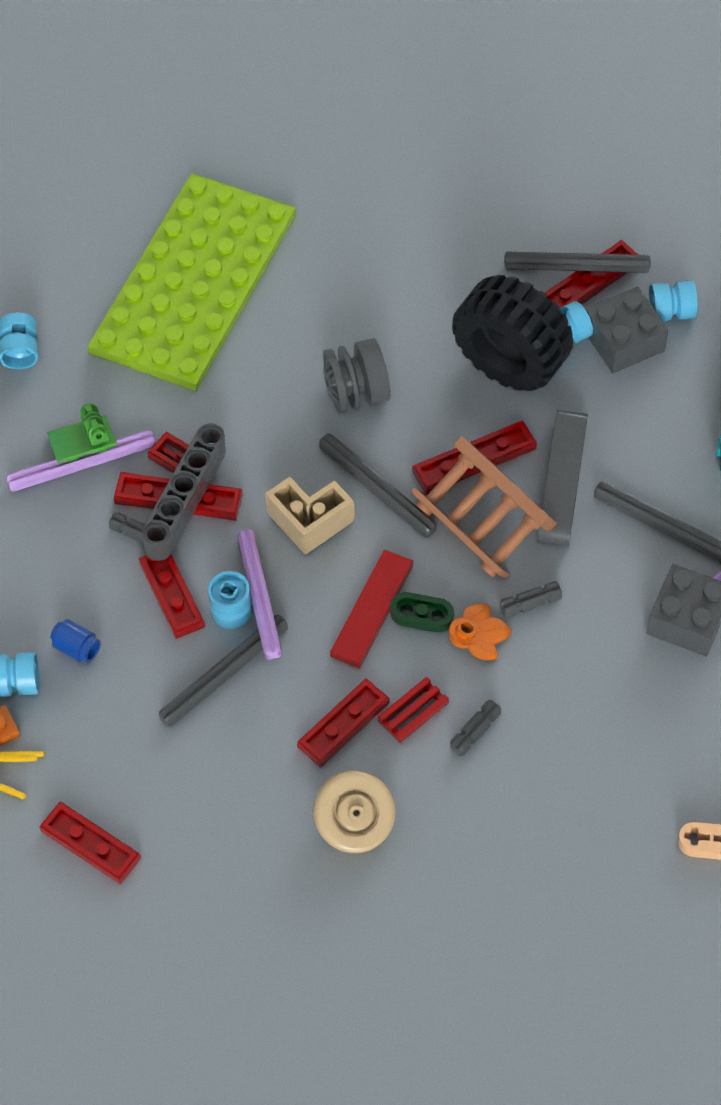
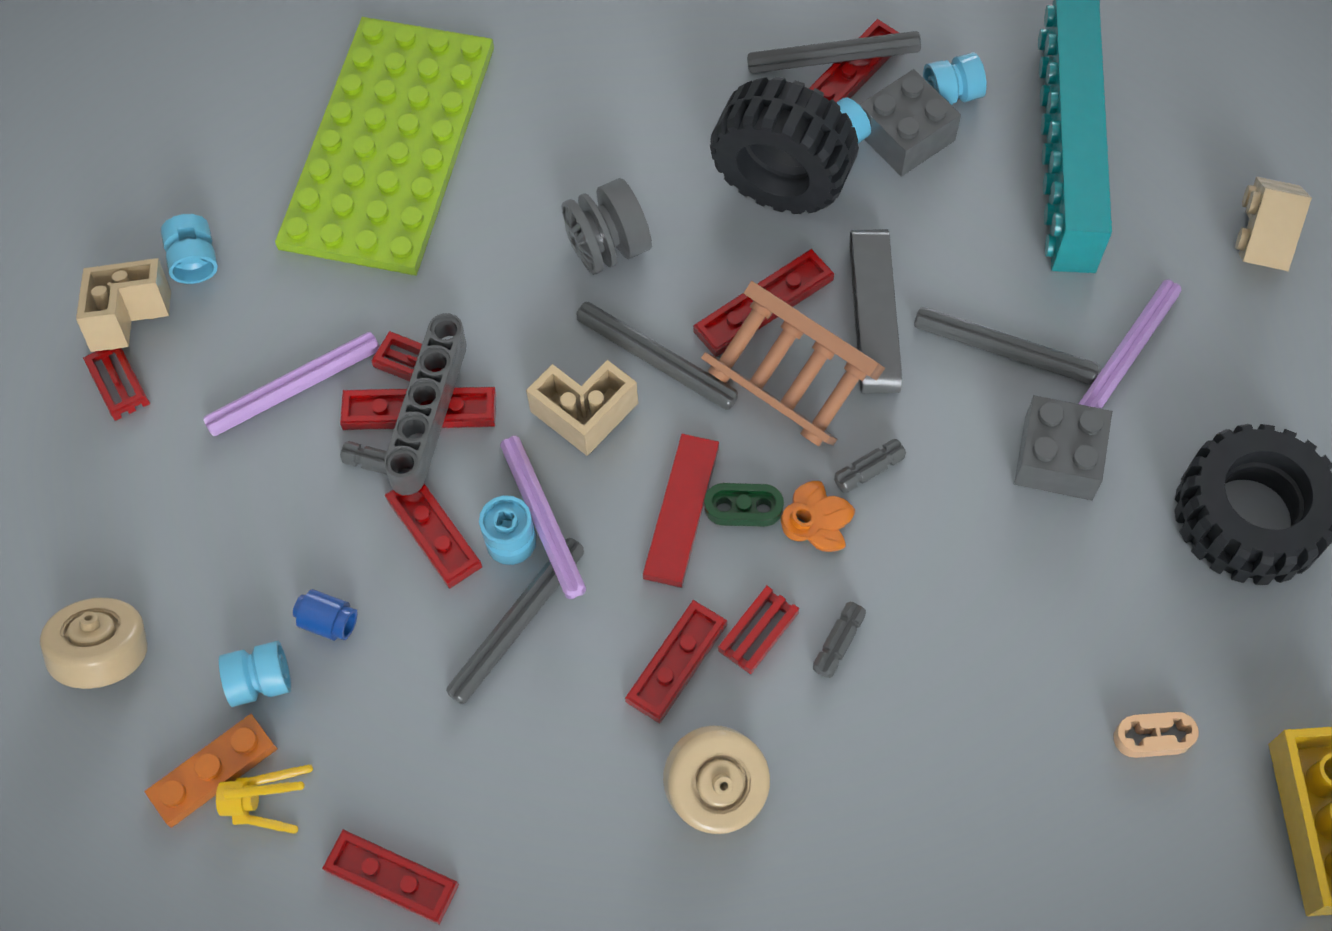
camera: 10 degrees left, 5 degrees up
(84, 437) = (289, 355): bright green hinge -> none

